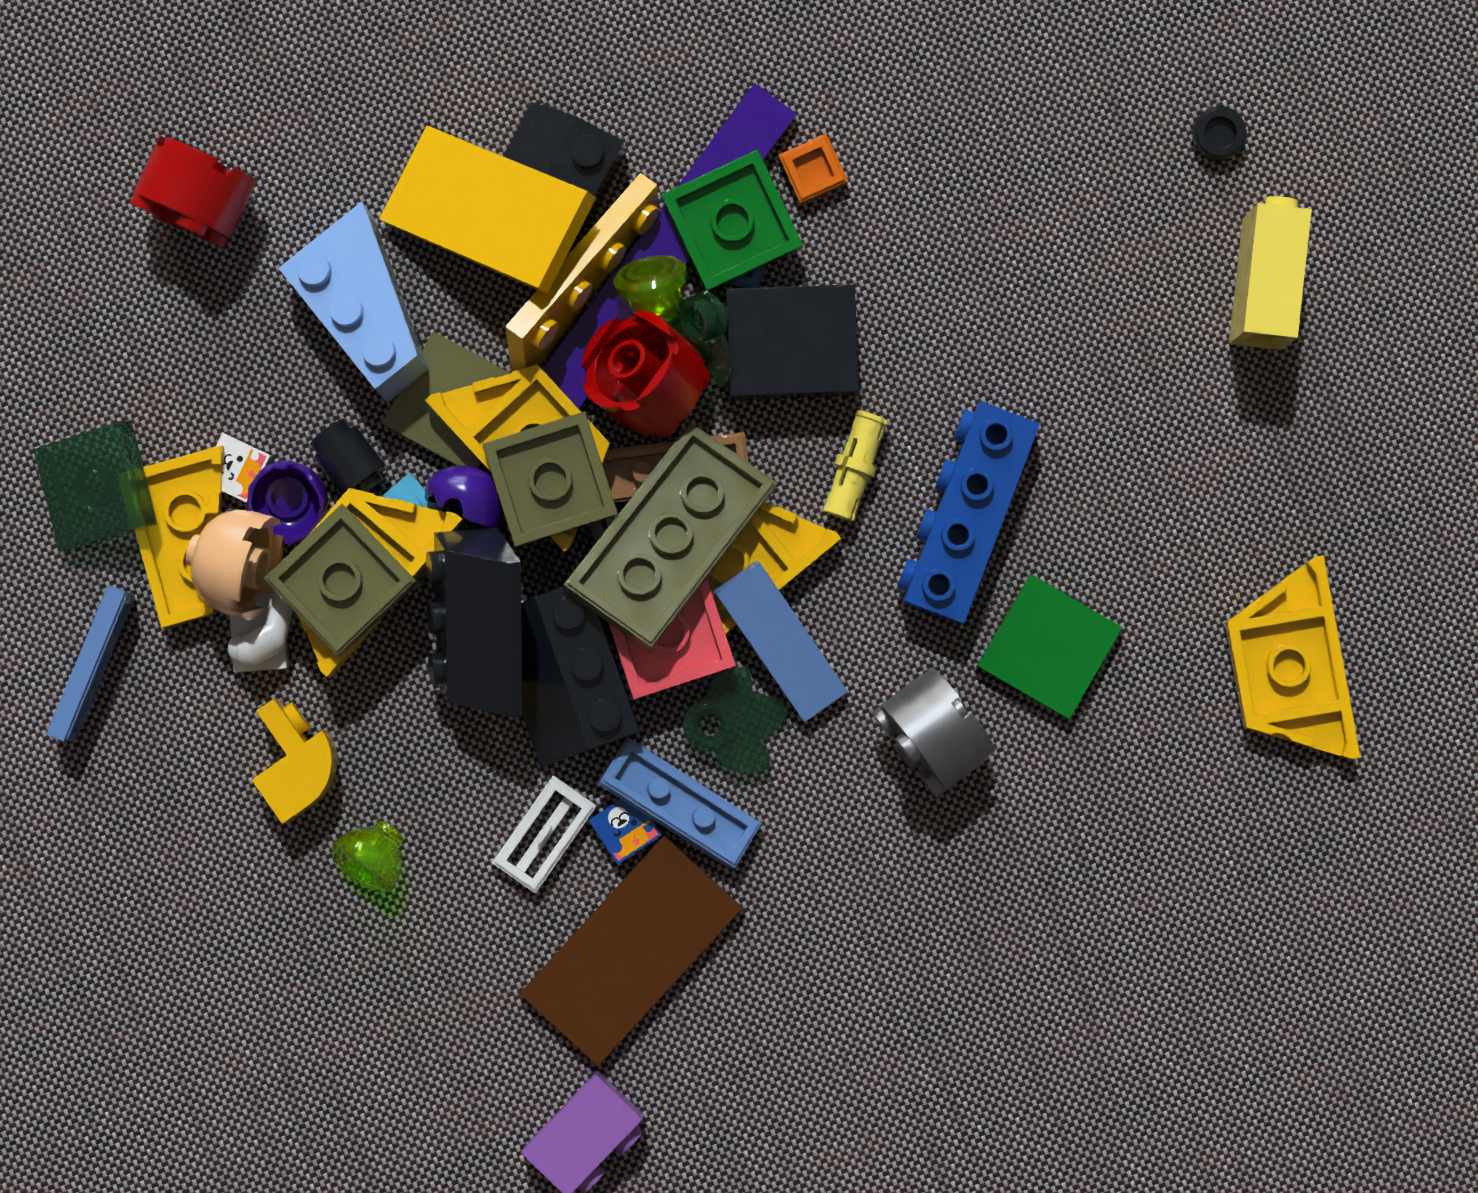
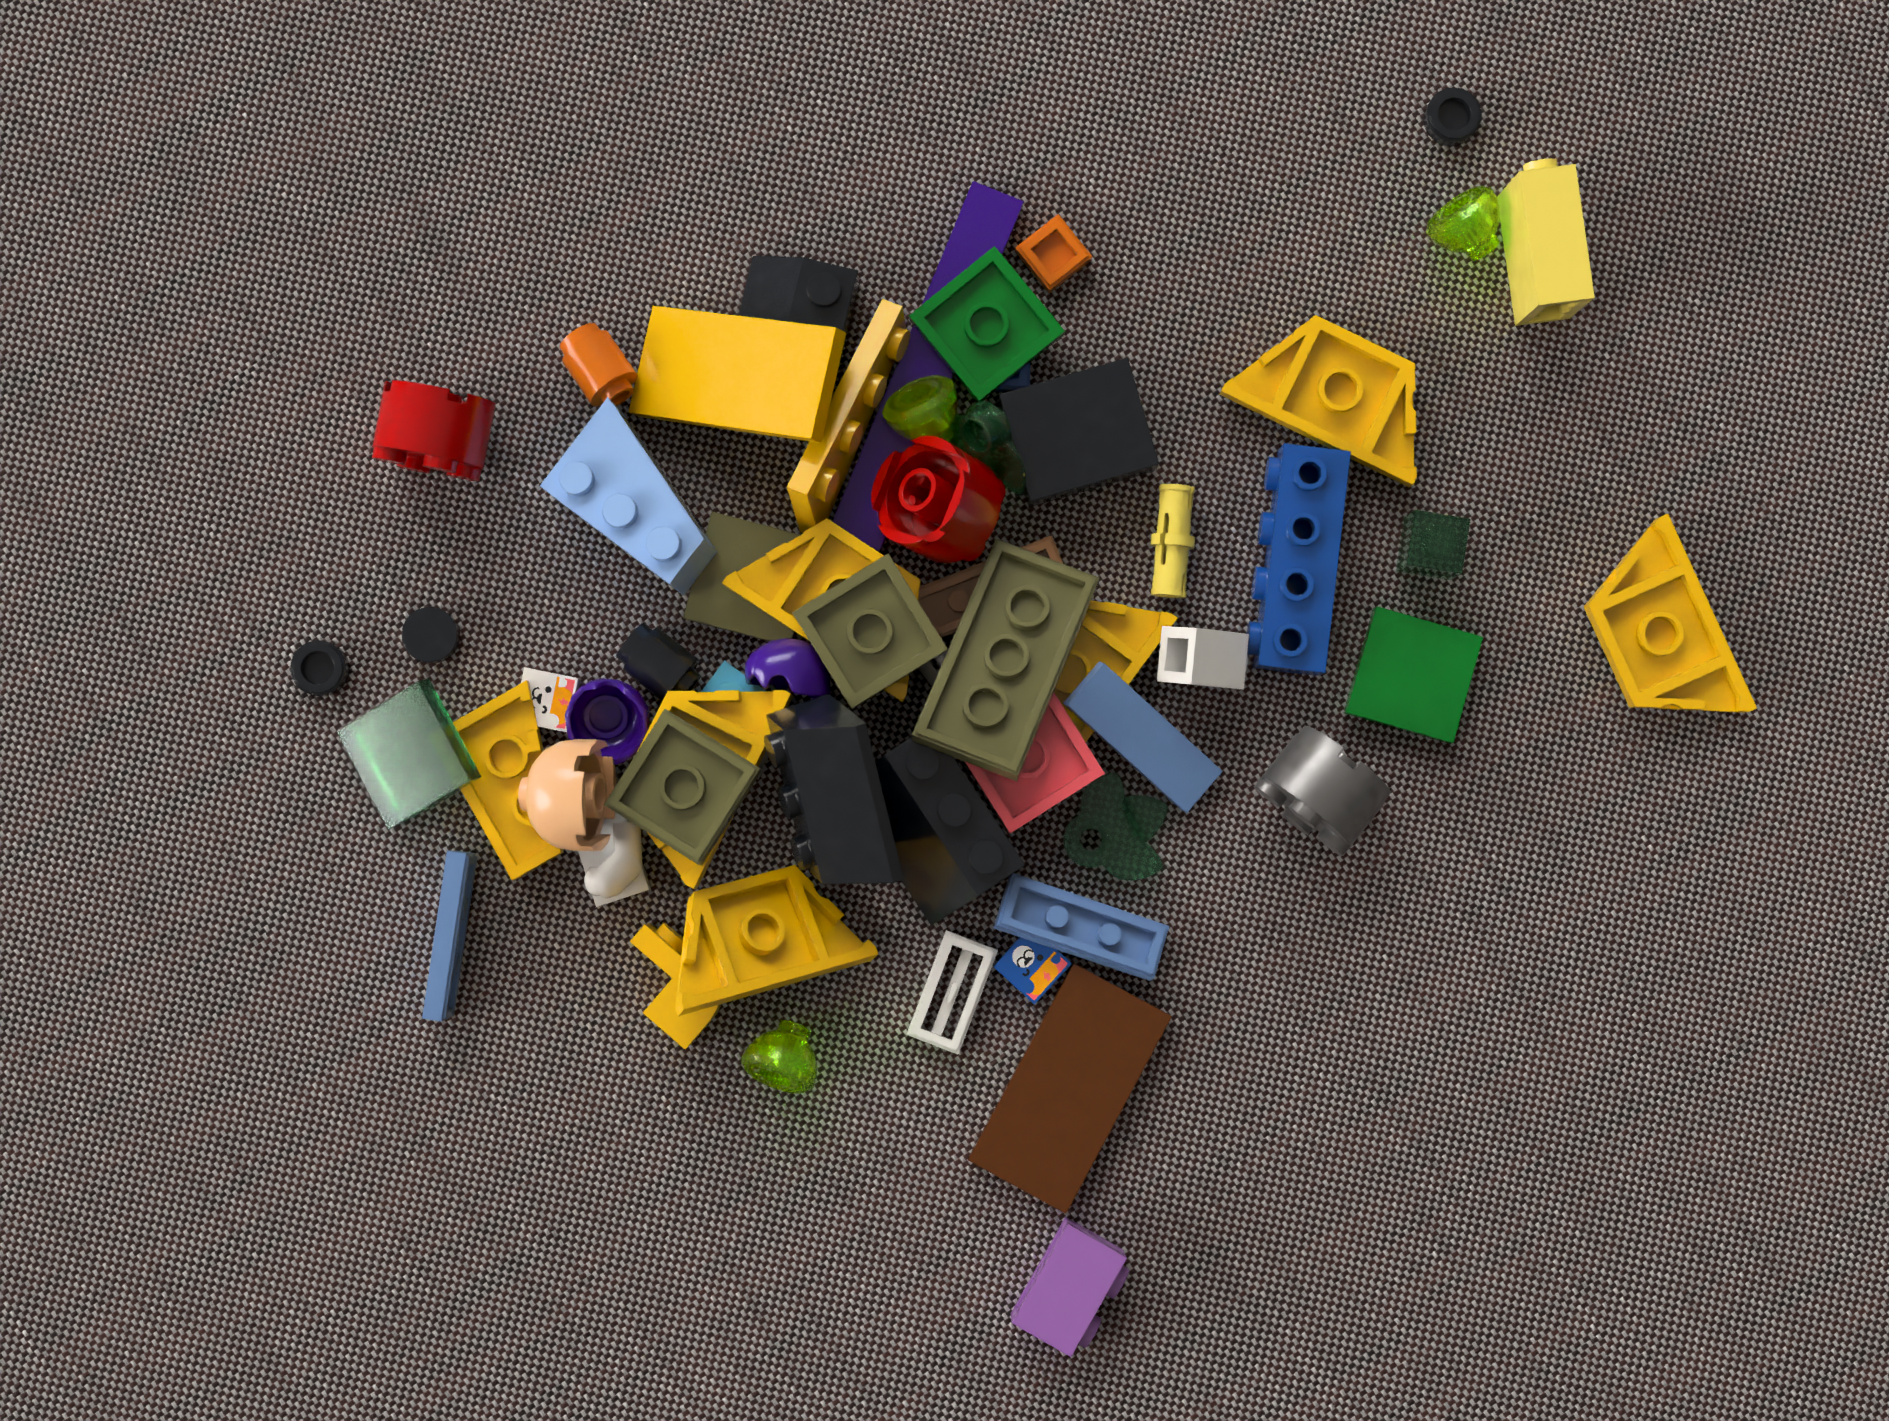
camera: 15 degrees left, 0 degrees up
(32, 386) = (320, 668): none -> black tile
(143, 381) = (430, 635): none -> black tile
(361, 168) = (598, 365): none -> orange brick
(378, 739) = (761, 938): none -> yellow wing
(854, 581) = (1203, 657): none -> white brick
(1043, 367) = (1337, 394): none -> yellow wing
(1096, 530) = (1433, 545): none -> clear green brick
(1205, 237) = (1467, 223): none -> clear neon green brick

